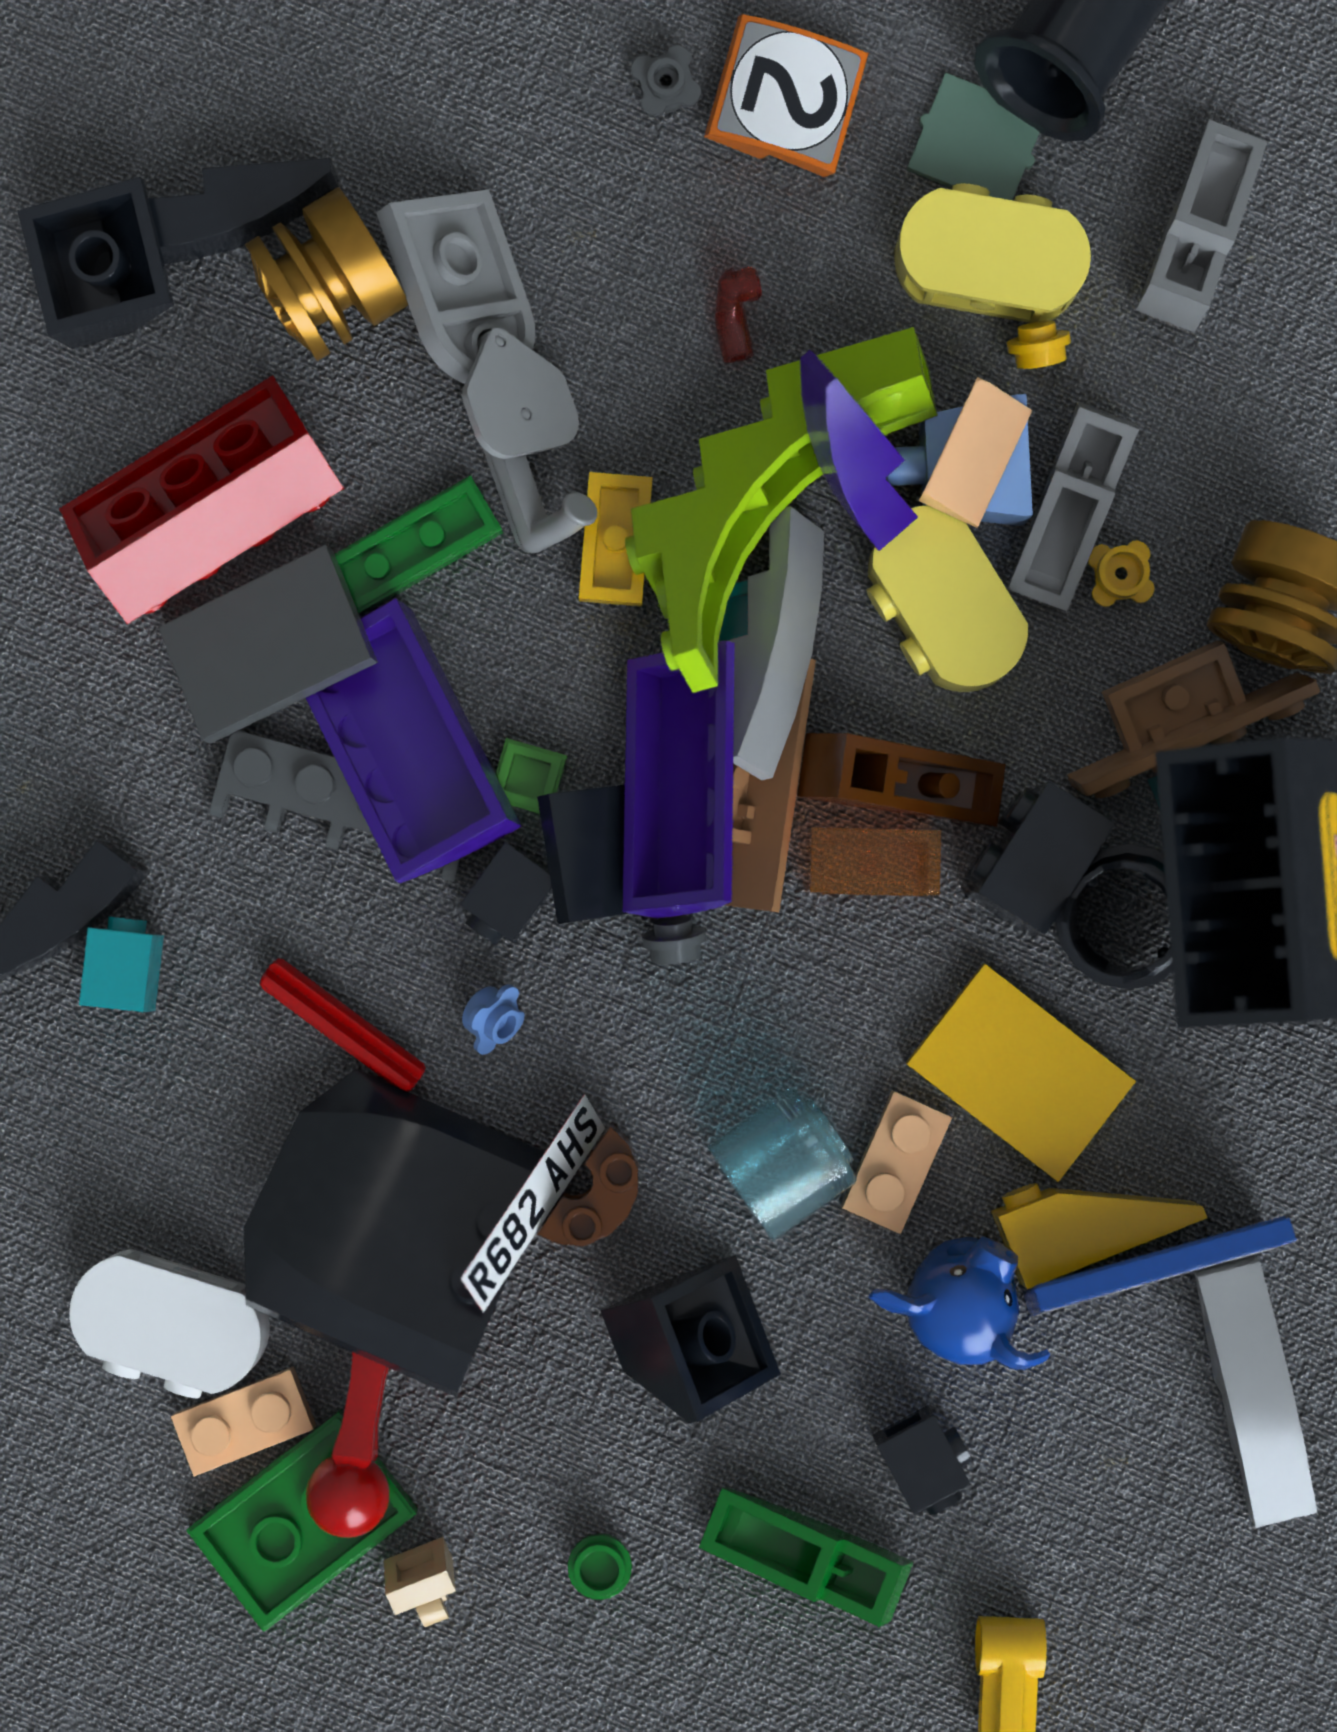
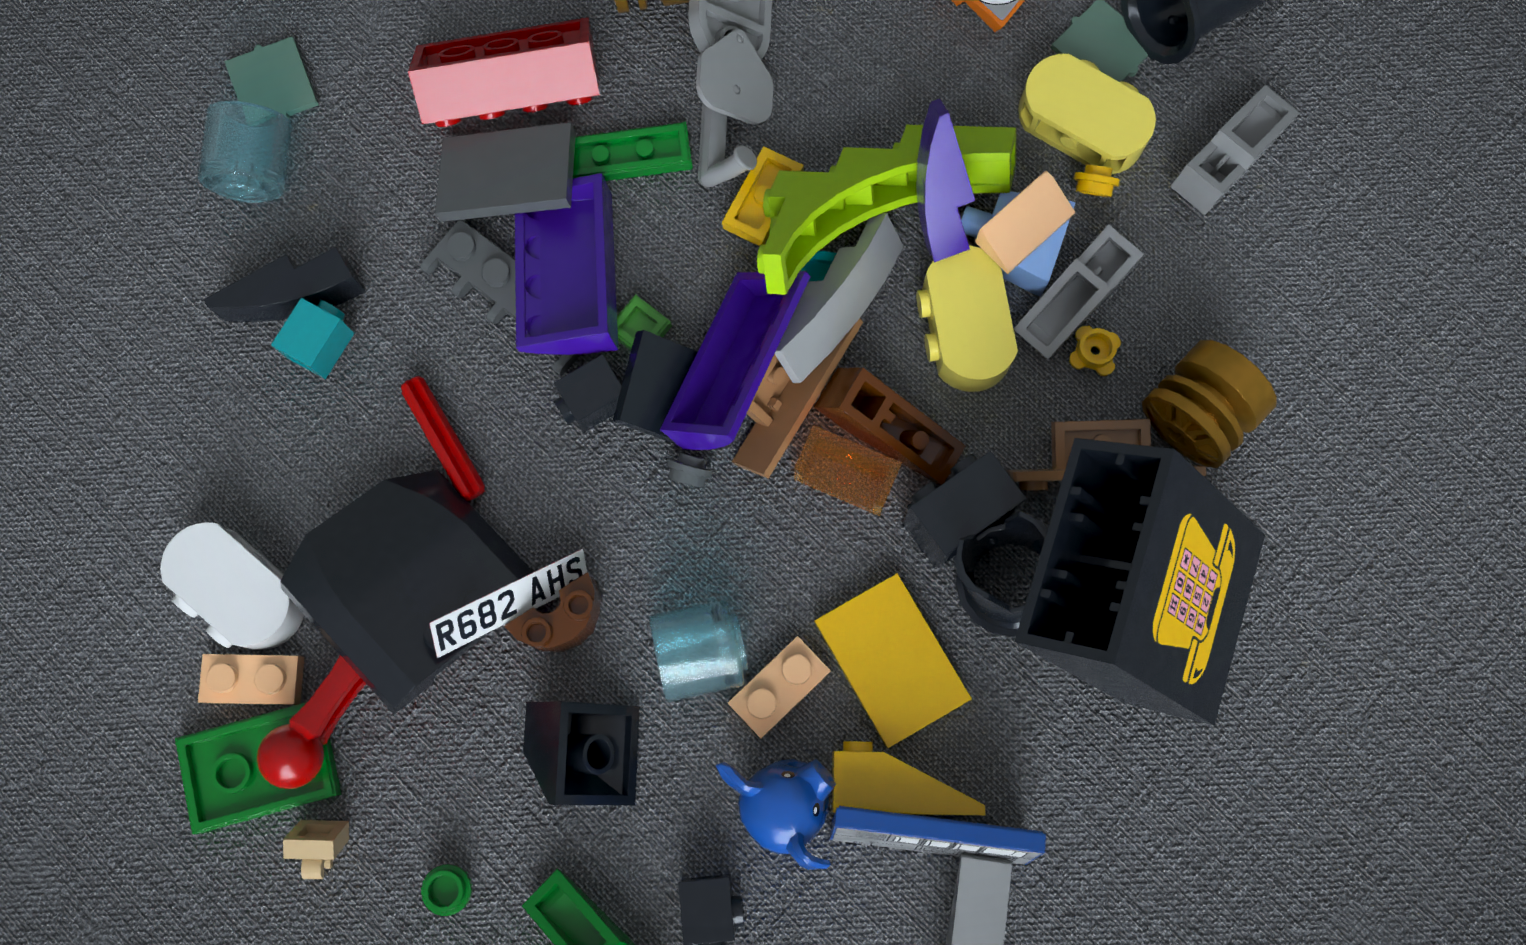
camera: 30 degrees right, 10 degrees down
(493, 1017) = (544, 471): medium blue plate -> none
(730, 314) = (897, 91): clear red arm -> none

